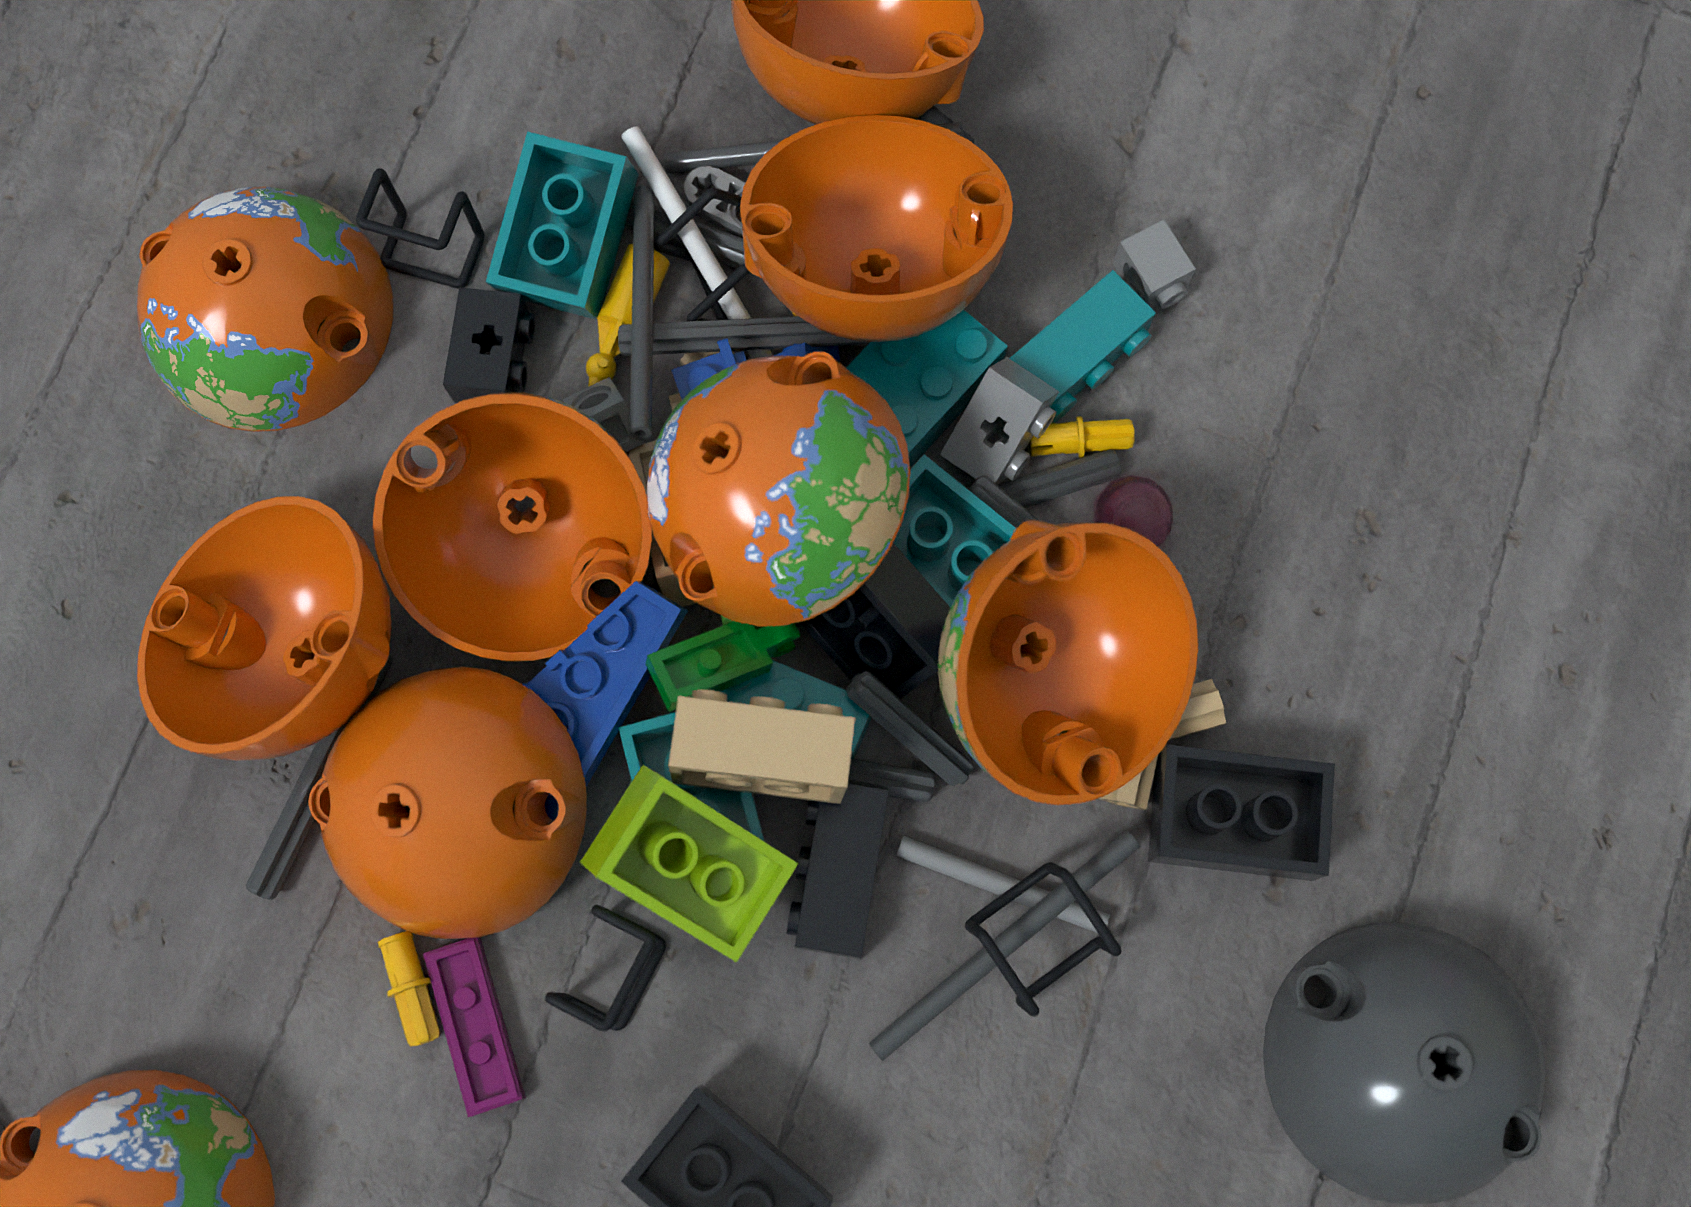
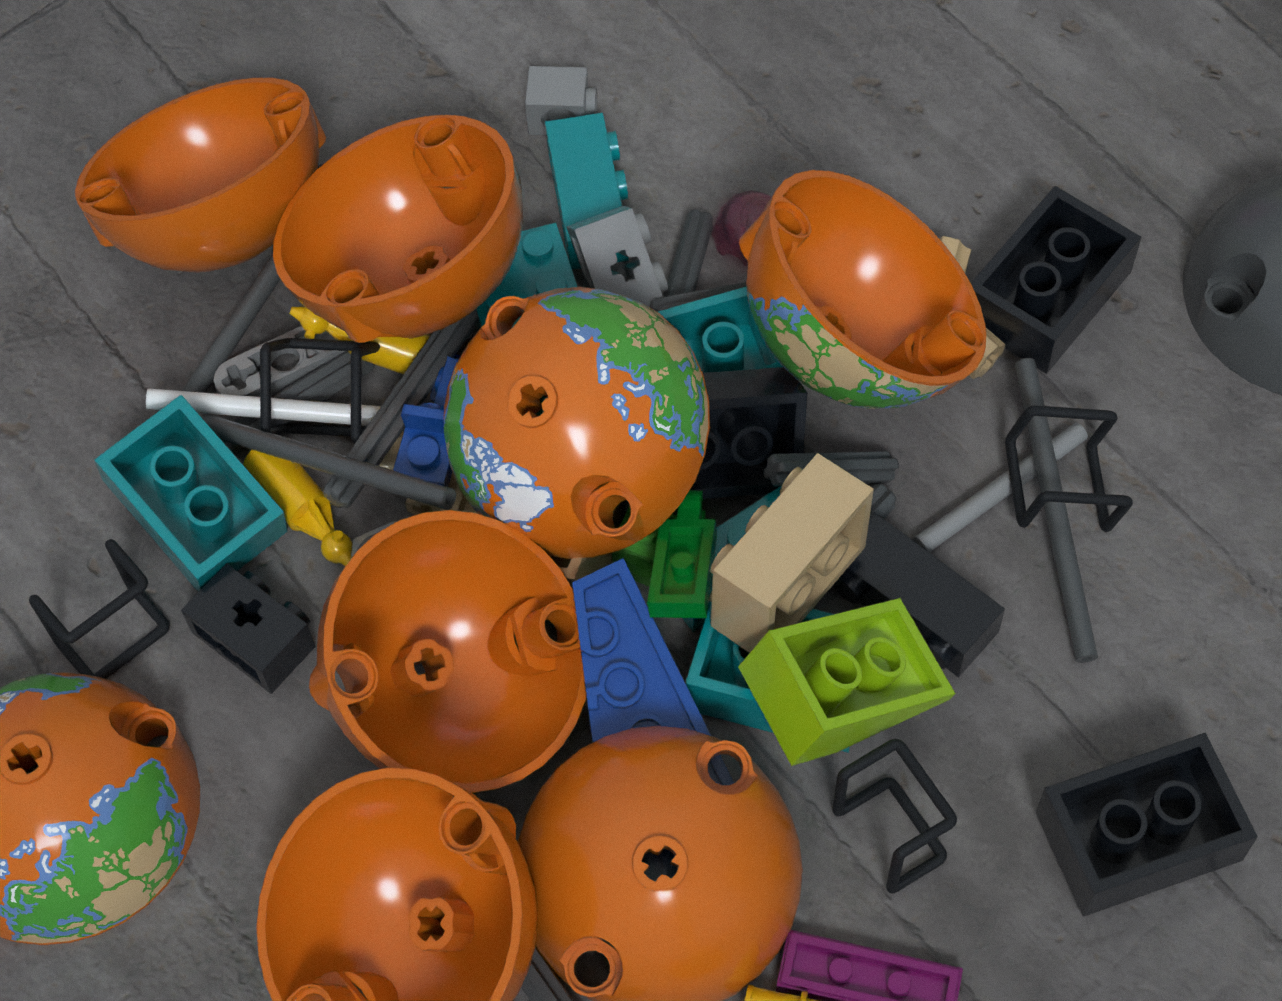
camera: 55 degrees left, 15 degrees down
(1084, 437) = (667, 219): yellow axle -> none

